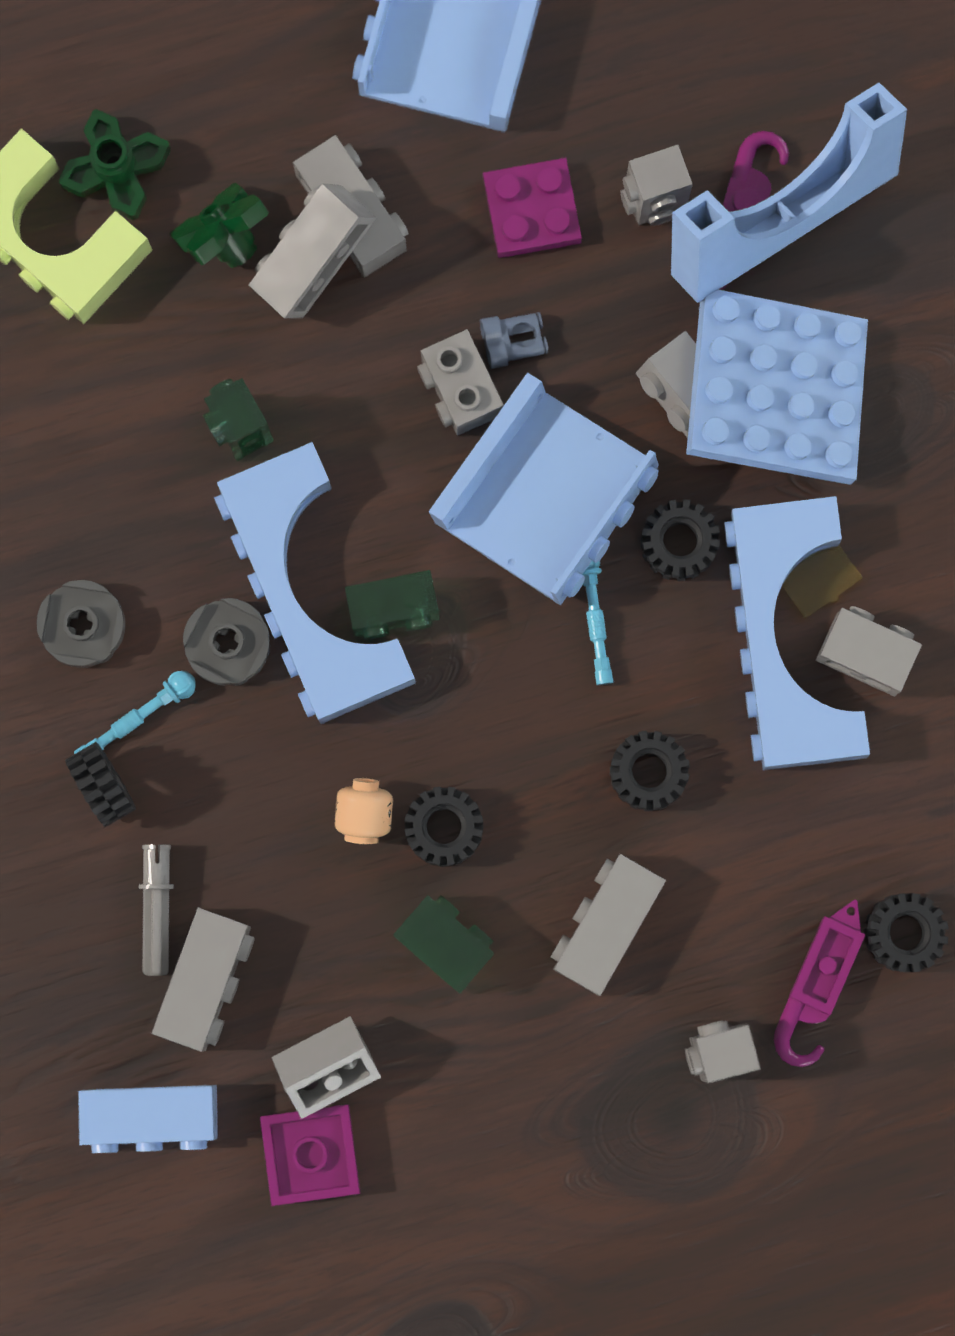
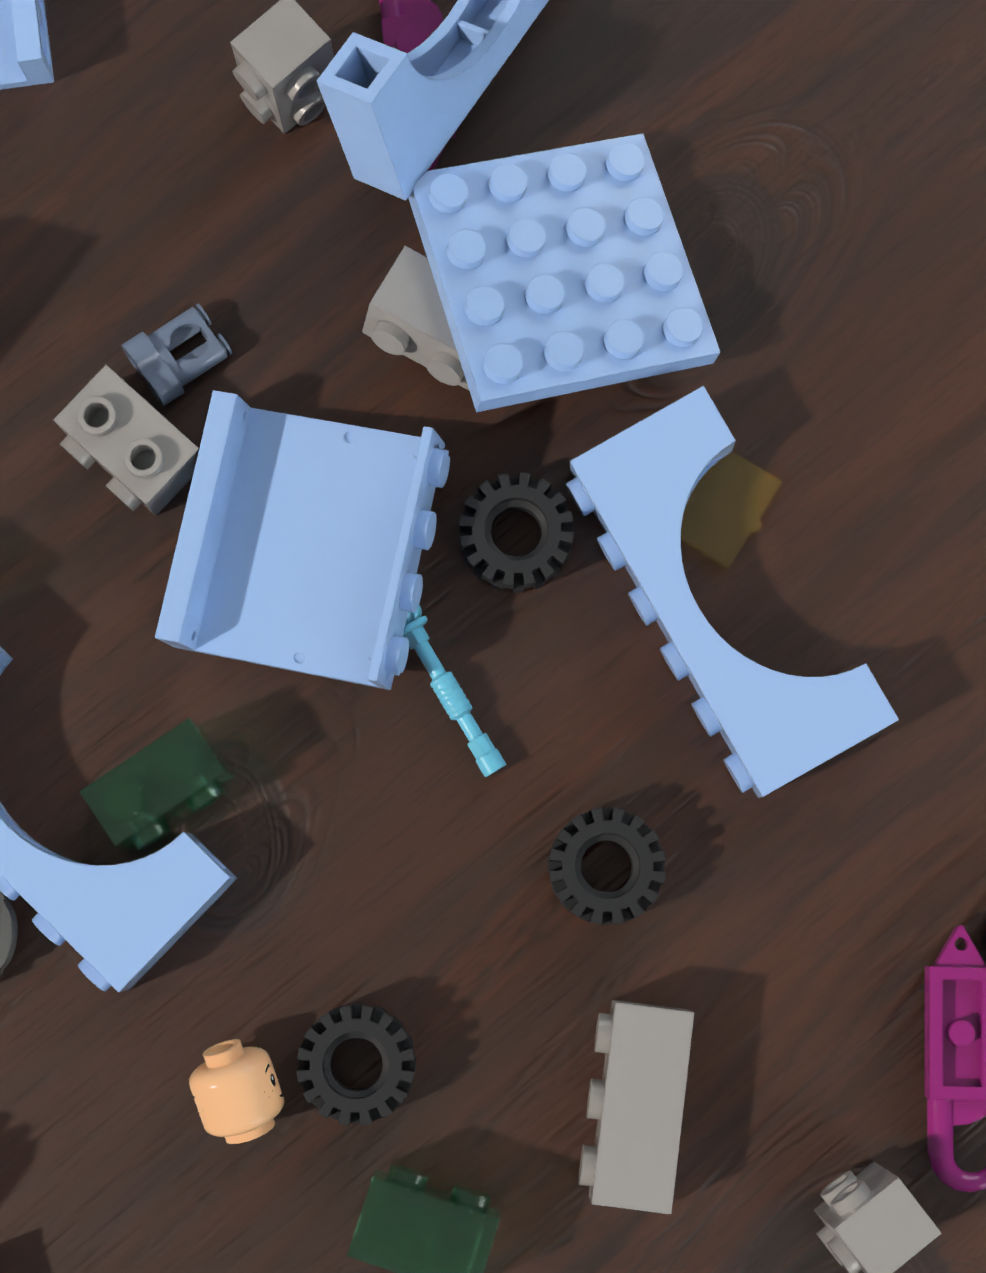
camera: 25 degrees left, 0 degrees up
(532, 207) = (131, 167): magenta plate -> none
(869, 650) = (835, 576): light grey brick -> none

